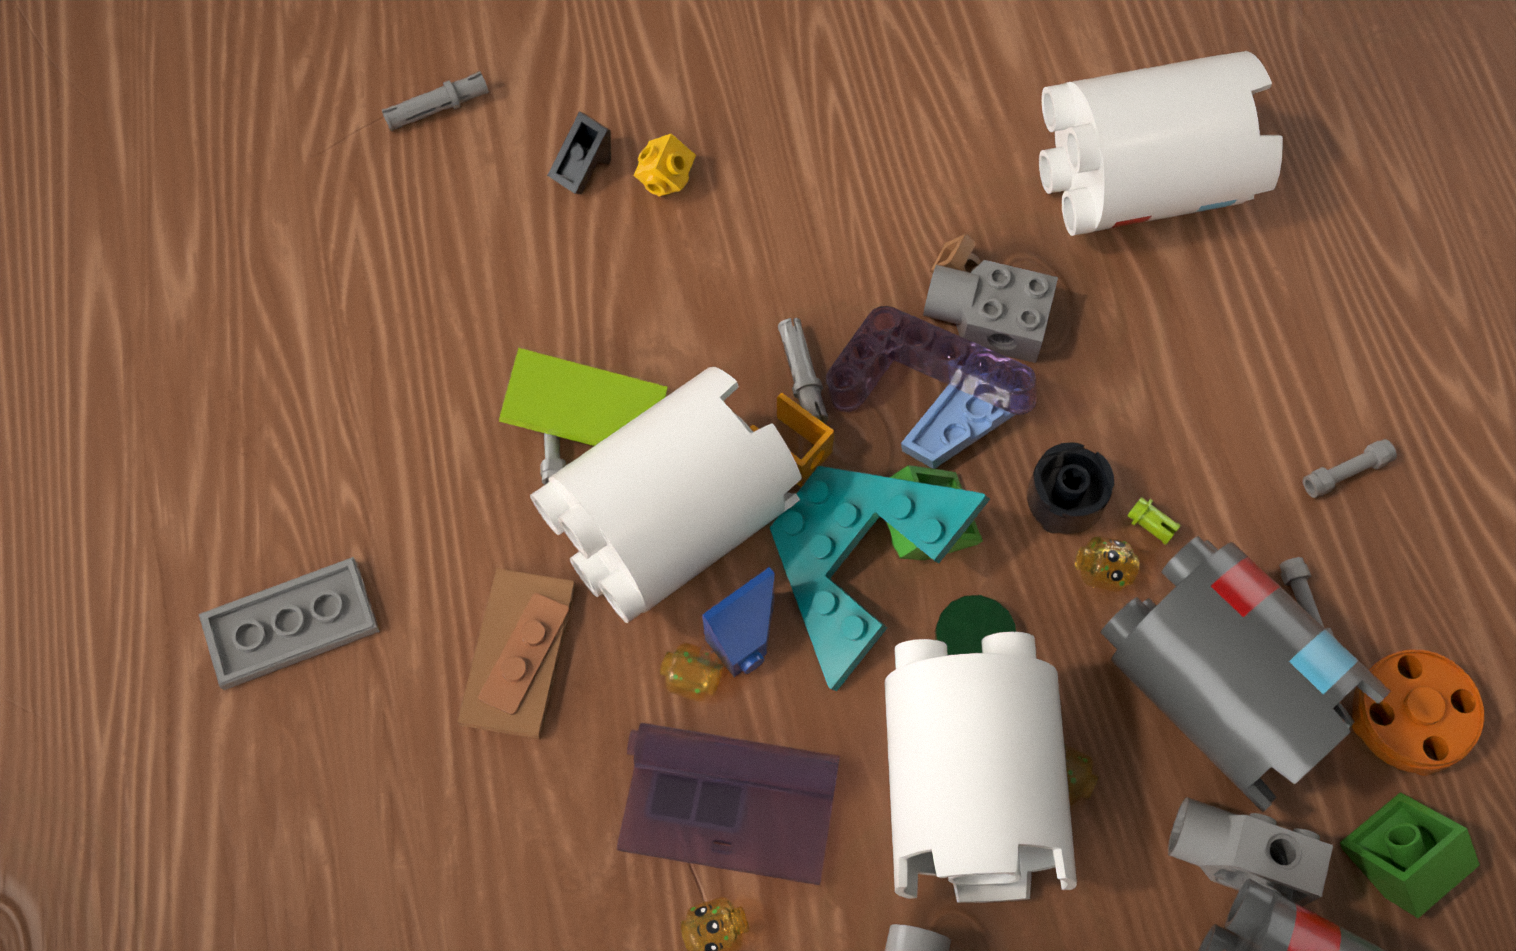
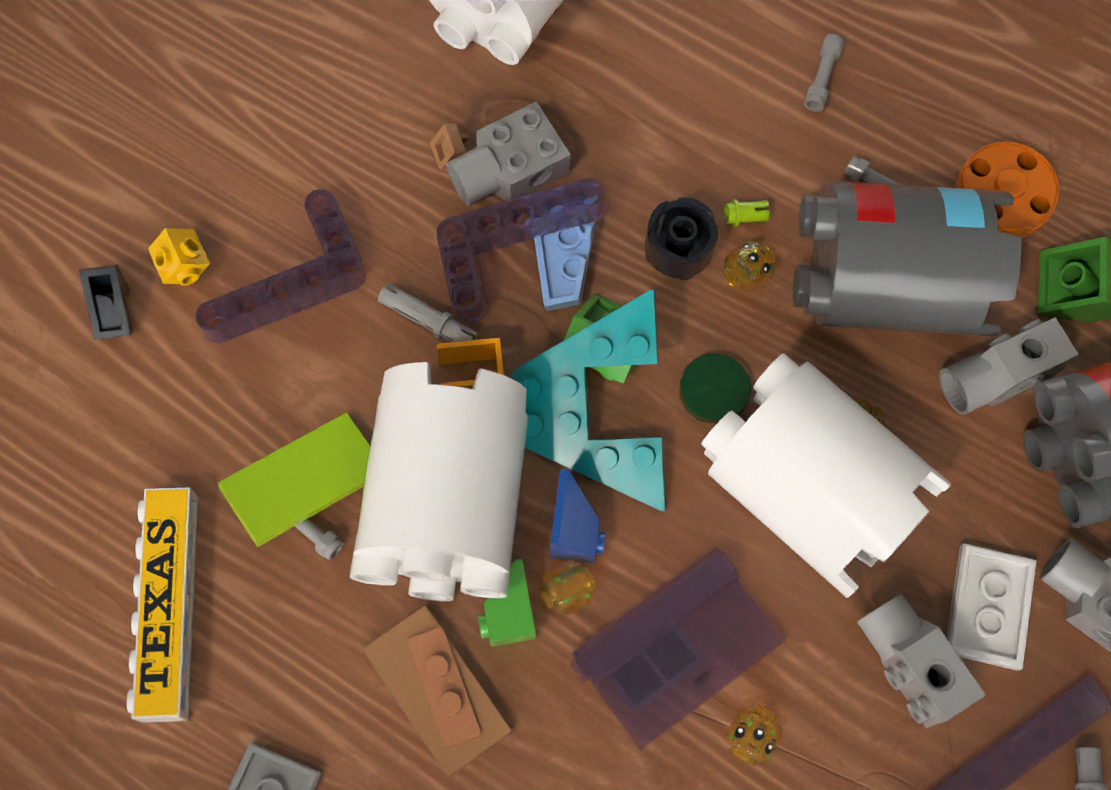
camera: 50 degrees left, 5 degrees up
(398, 404) = (164, 606): none -> brick
(629, 648) = (509, 618): none -> bright green slope
(730, 255) = (292, 280): none -> beam

